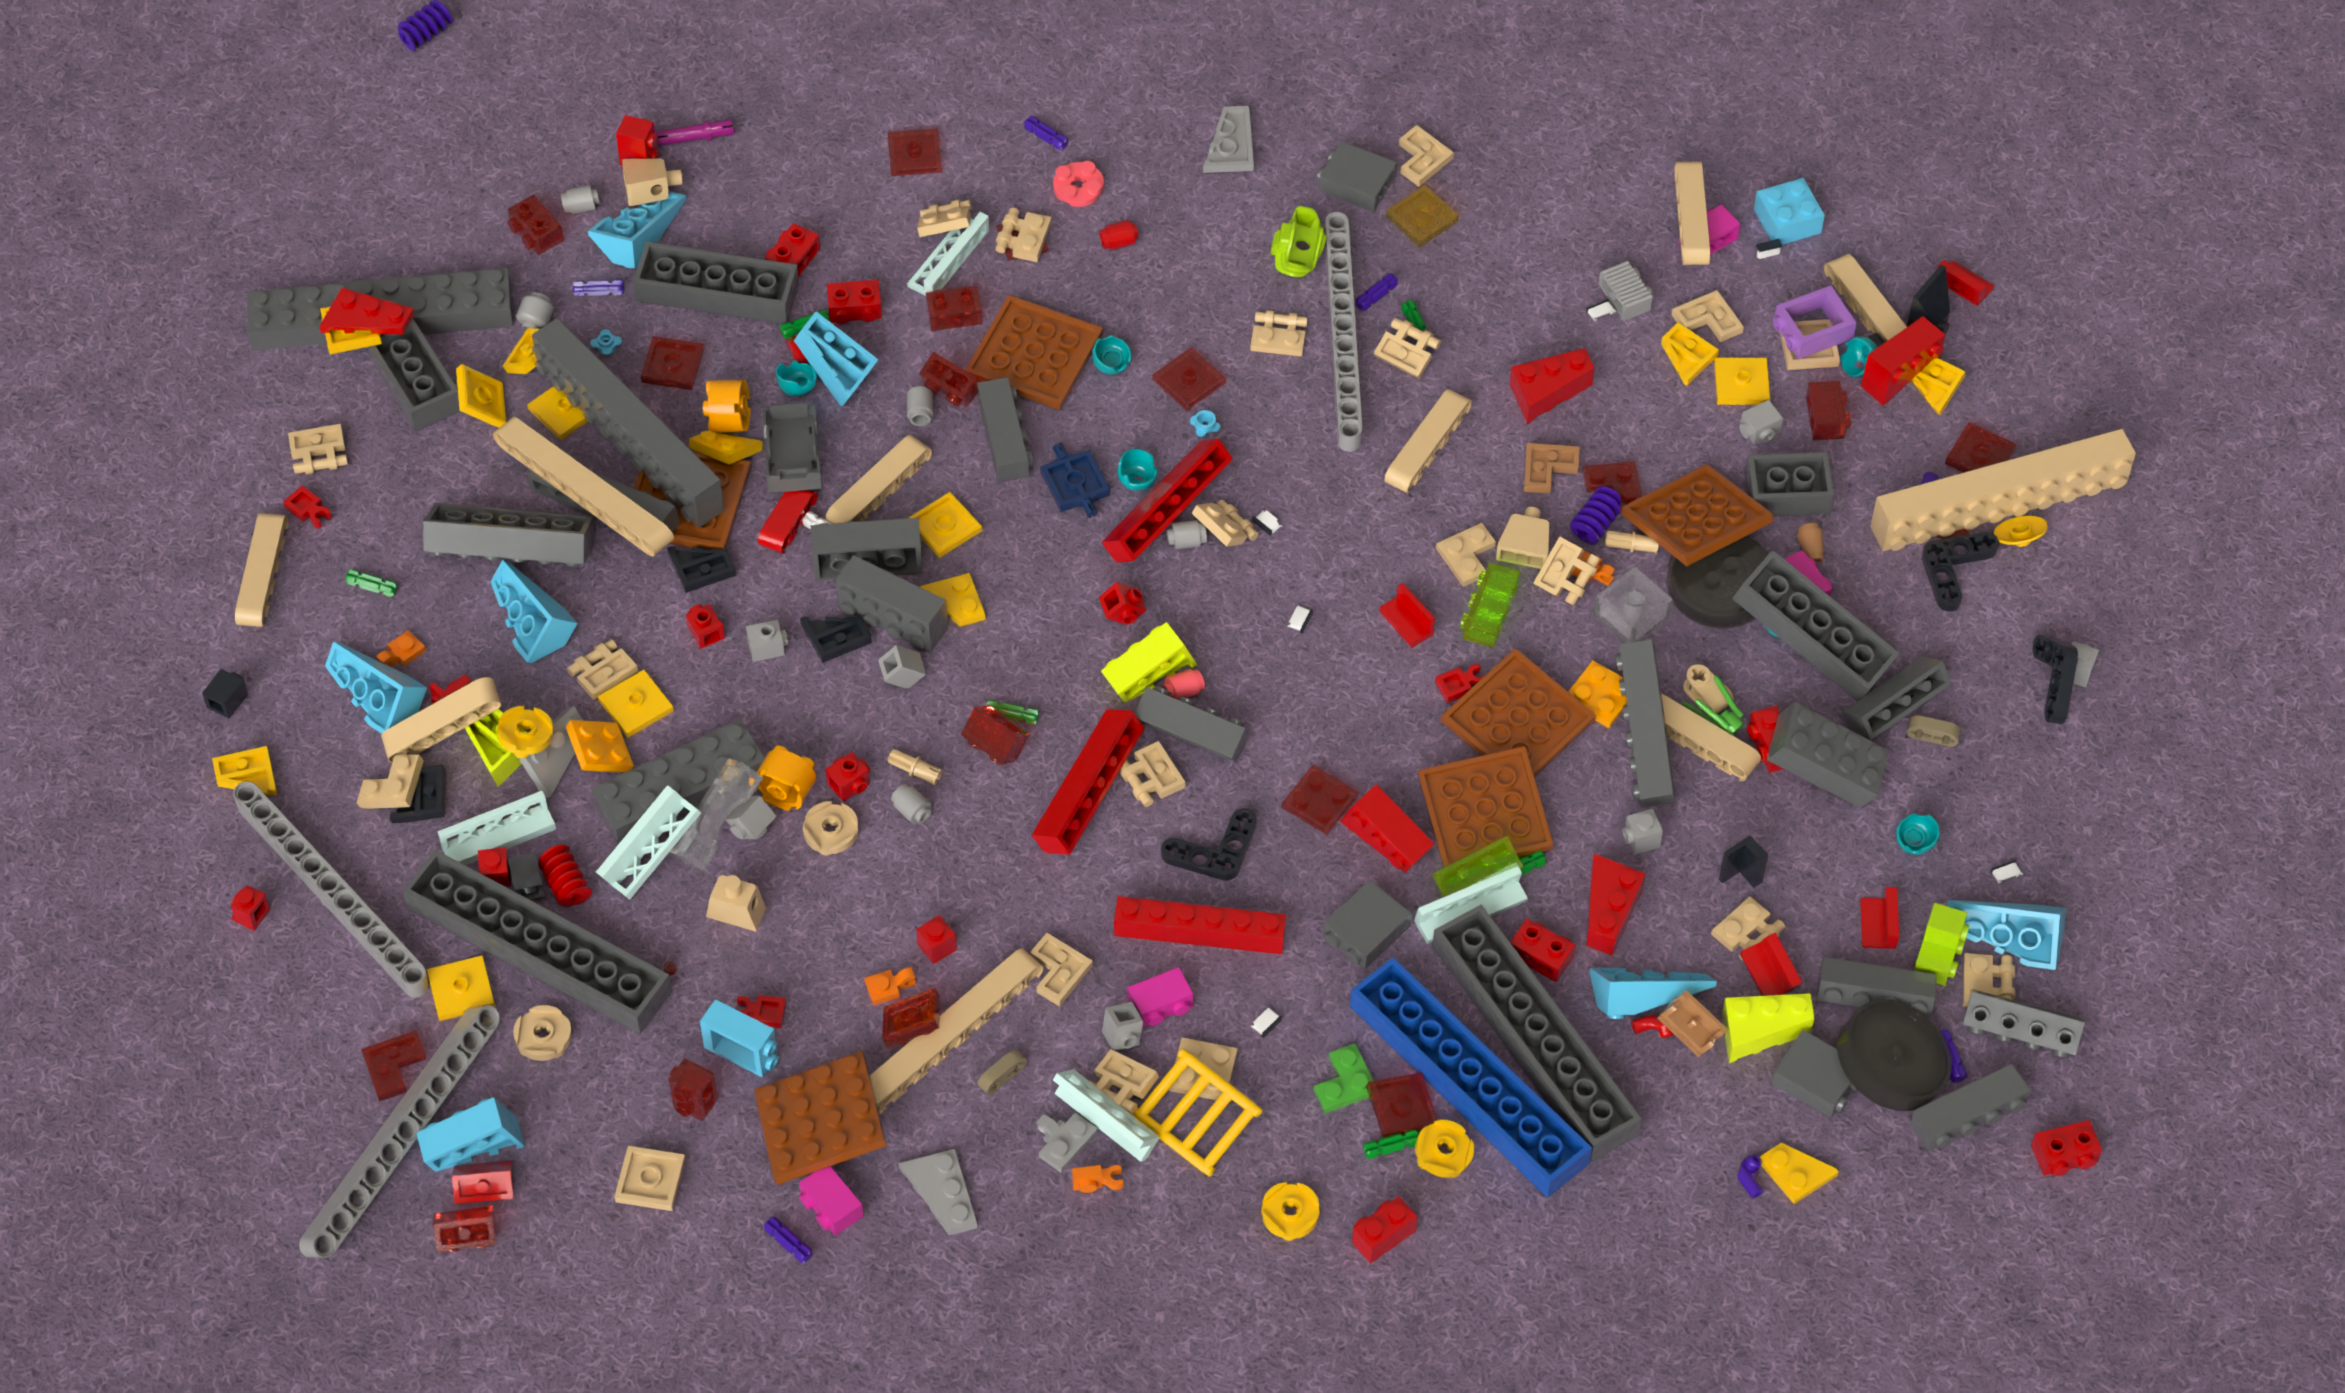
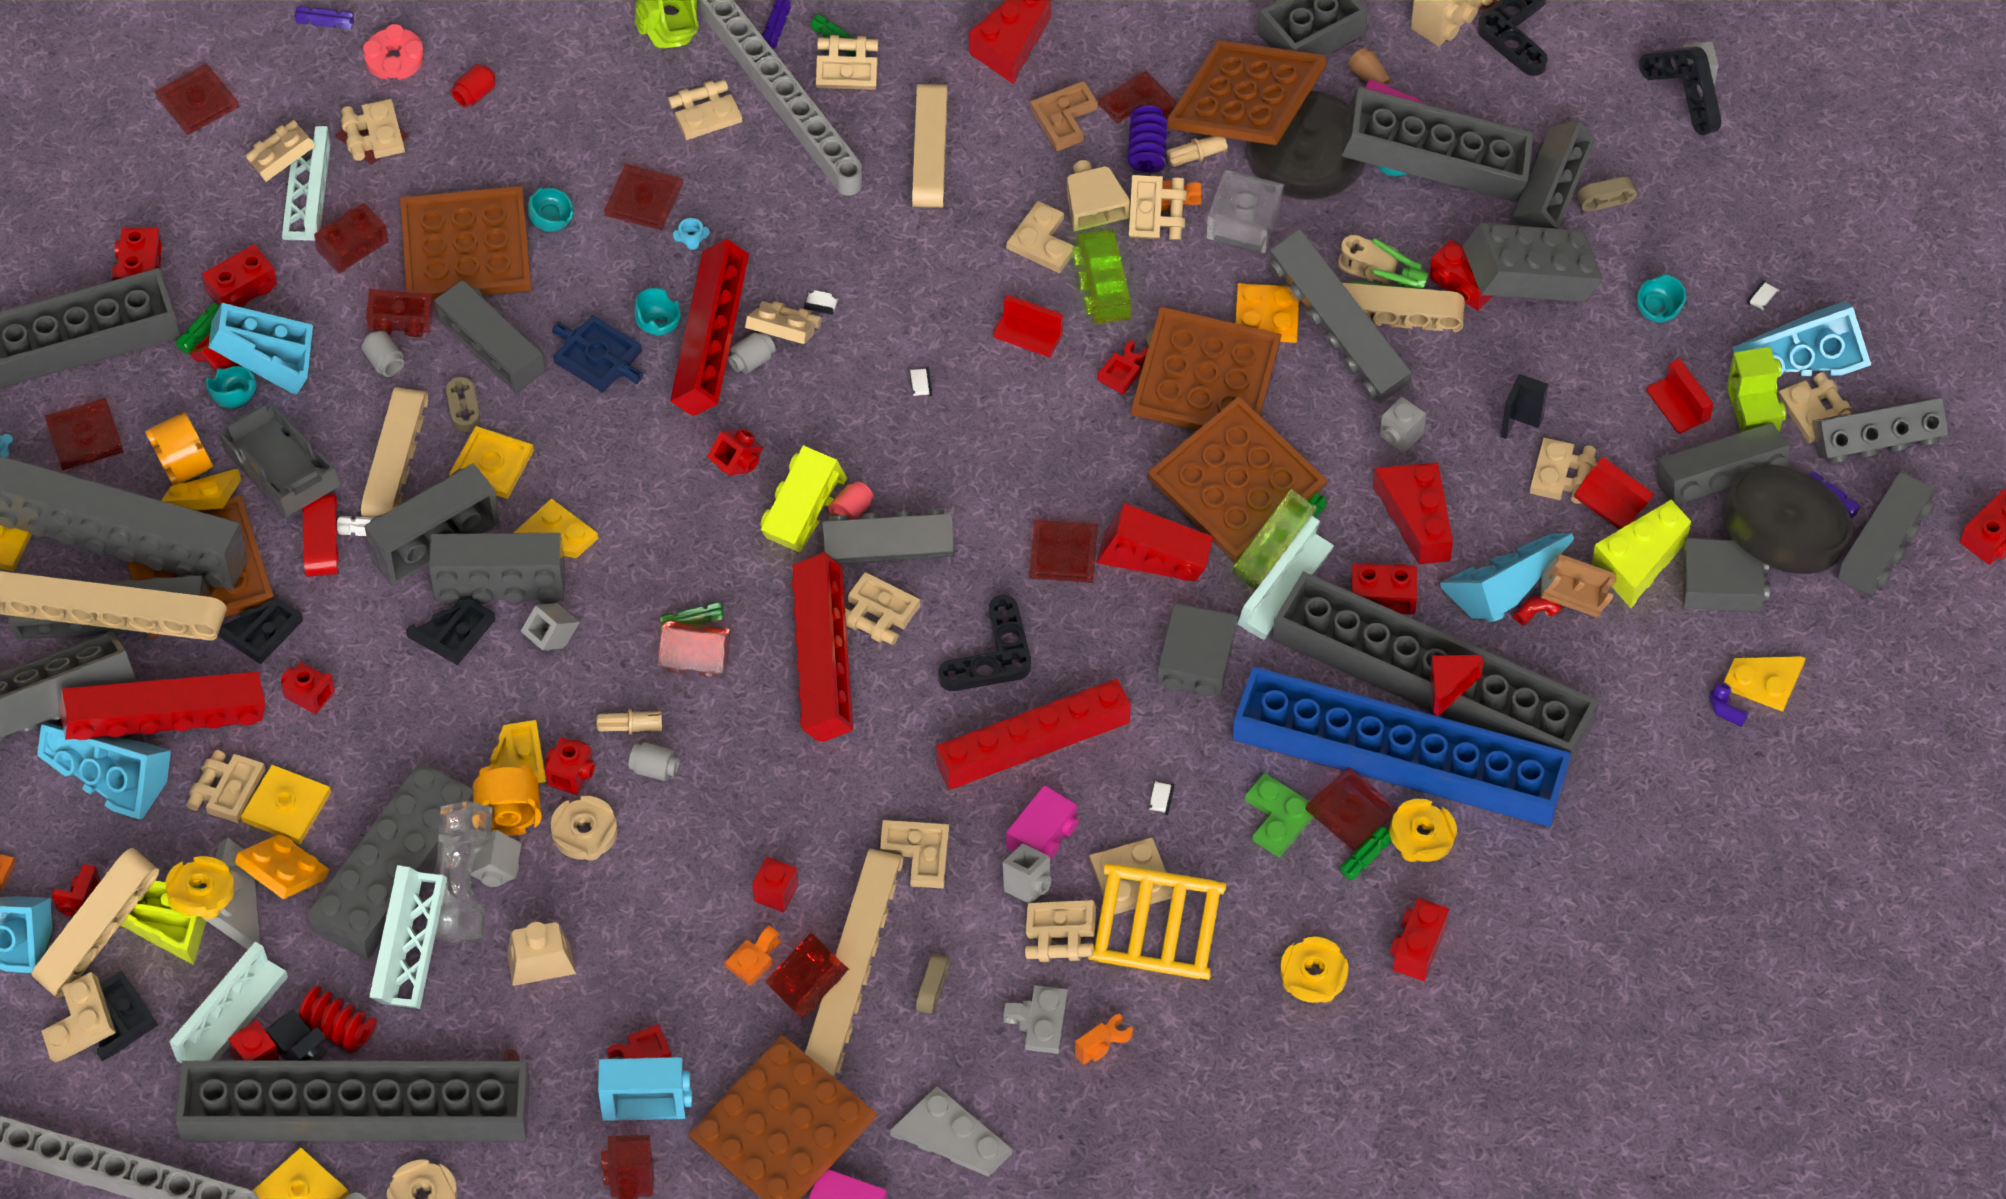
camera: 30 degrees left, 0 degrees up
(590, 587) = (161, 705): none -> red brick
(766, 640) = (384, 670): light grey brick -> none
(822, 747) = (519, 746): none -> yellow wing
(948, 470) = (456, 405): none -> dark tan beam
(1105, 1114) = (1068, 970): light aqua fence -> none
(1534, 1043) = (1452, 677): none -> red slope

